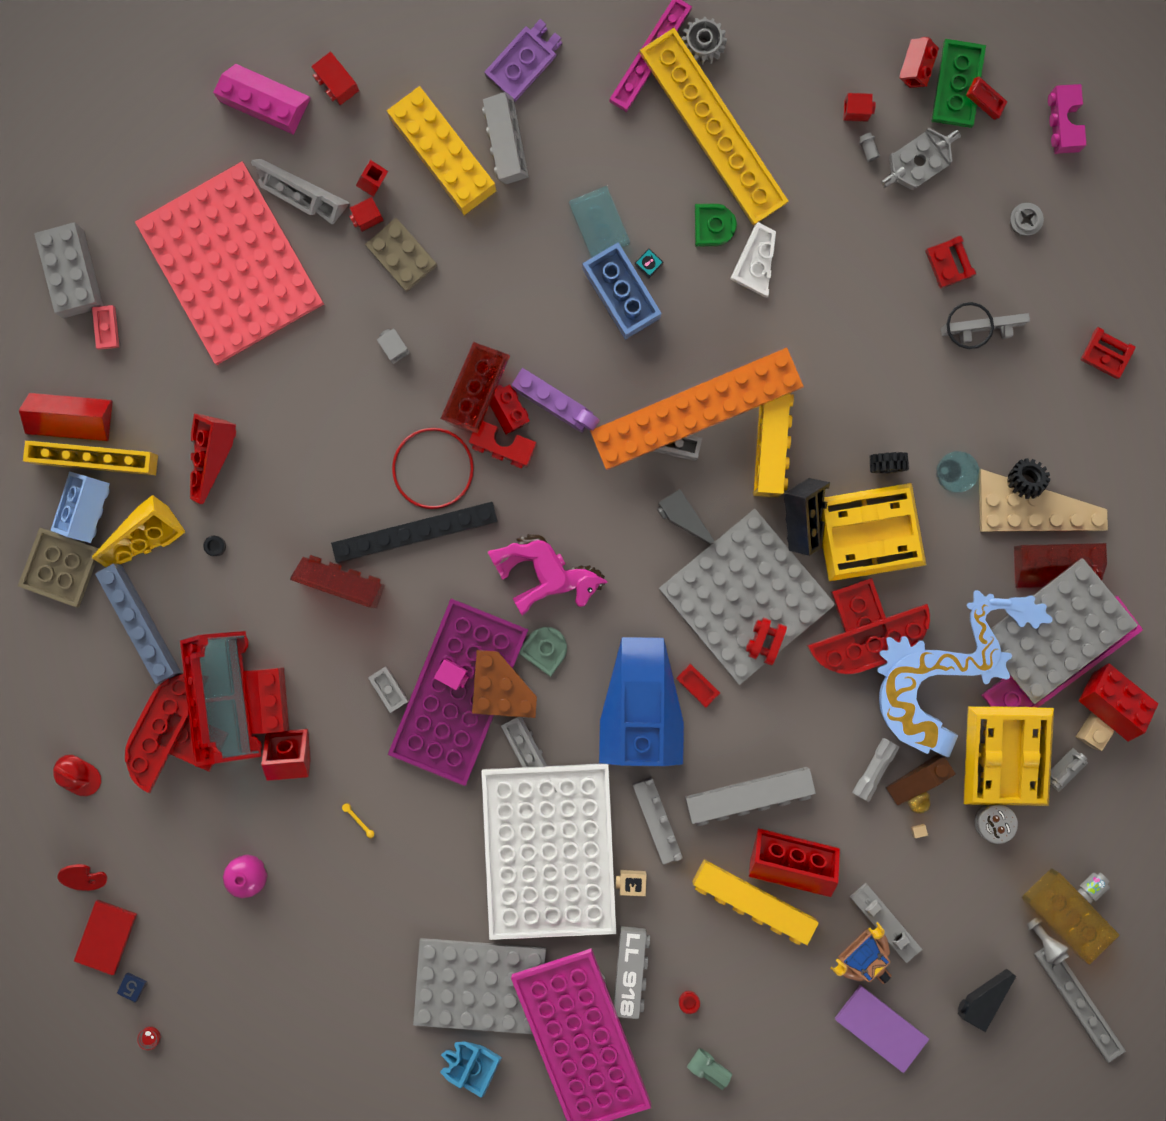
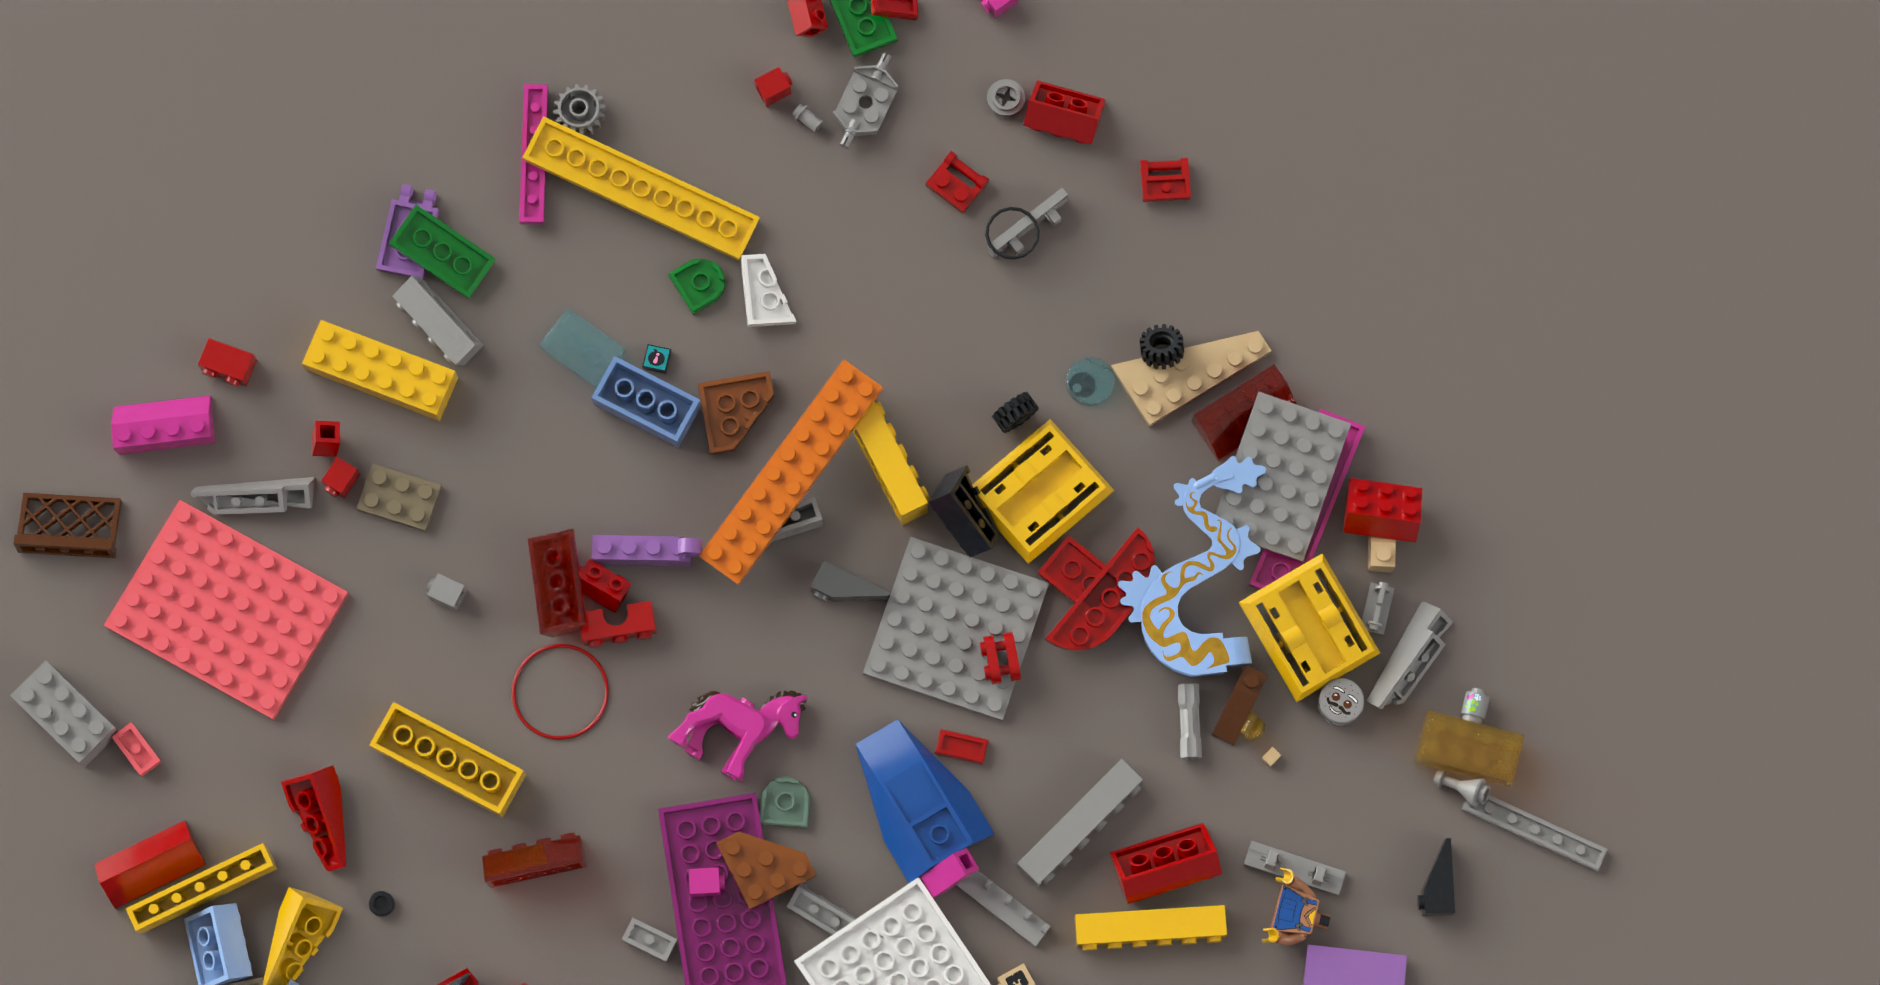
camera: 40 degrees left, 10 degrees down
(146, 148) = (63, 544): none -> reddish brown fence
(320, 470) = (447, 759): none -> yellow brick
(414, 532) = (580, 766): black plate -> none
(539, 87) = (442, 251): none -> green plate
(632, 776) = (949, 872): none -> dark pink brick
(682, 334) = (733, 407): none -> dark orange plate
(1063, 257) = (1064, 112): none -> red slope
(1069, 821) = (1411, 657): none -> light grey wedge

